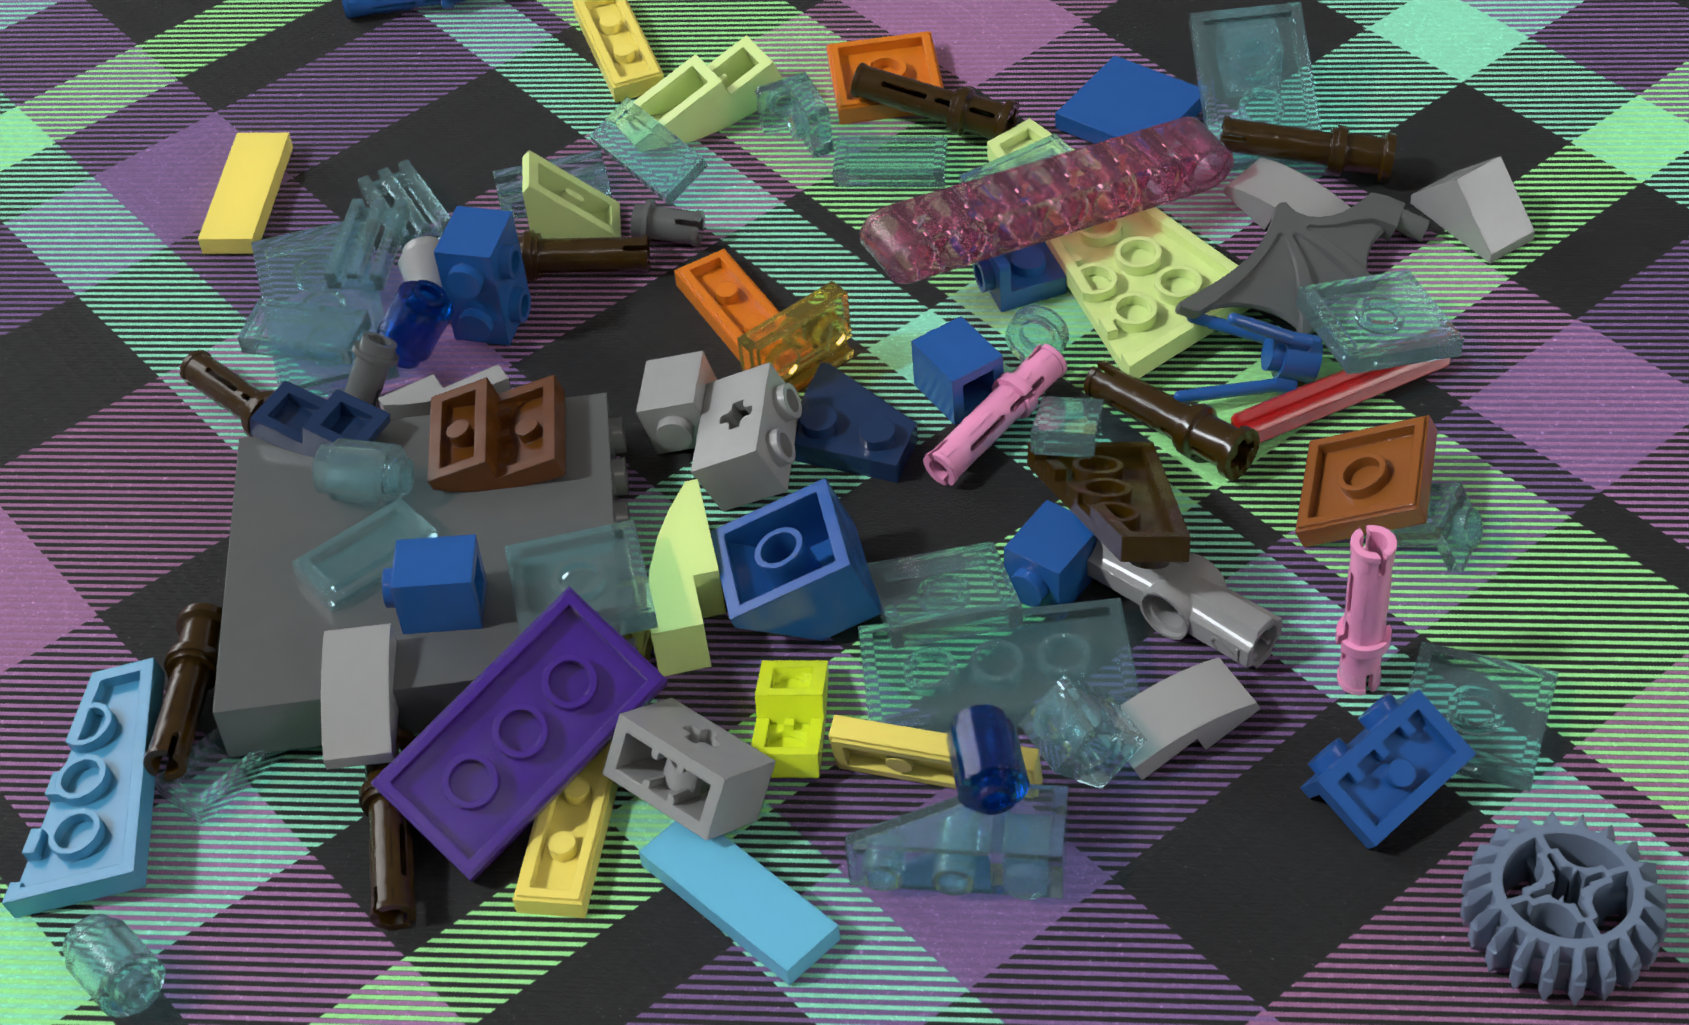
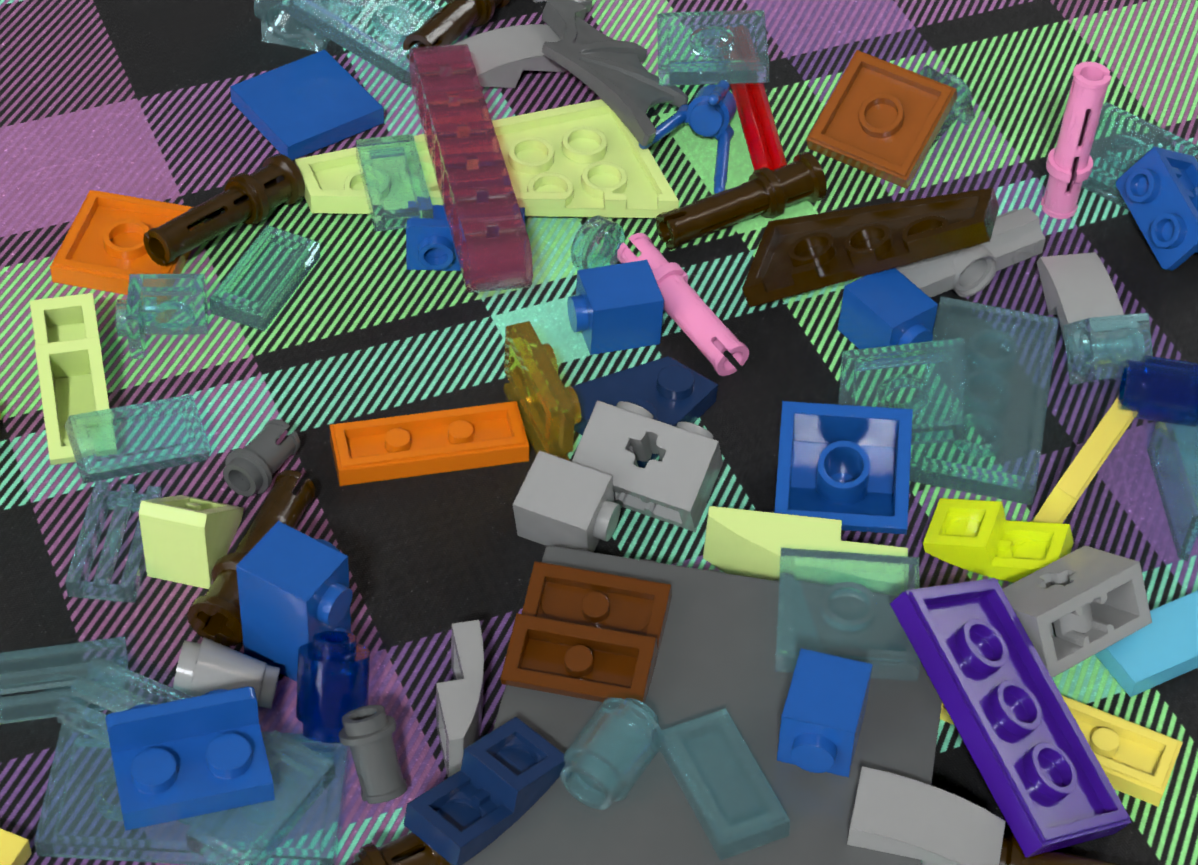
camera: 80 degrees left, 0 degrees up
(310, 269) = (189, 757): none -> blue bracket
(1067, 426) = (740, 256): clear light blue tile -> none

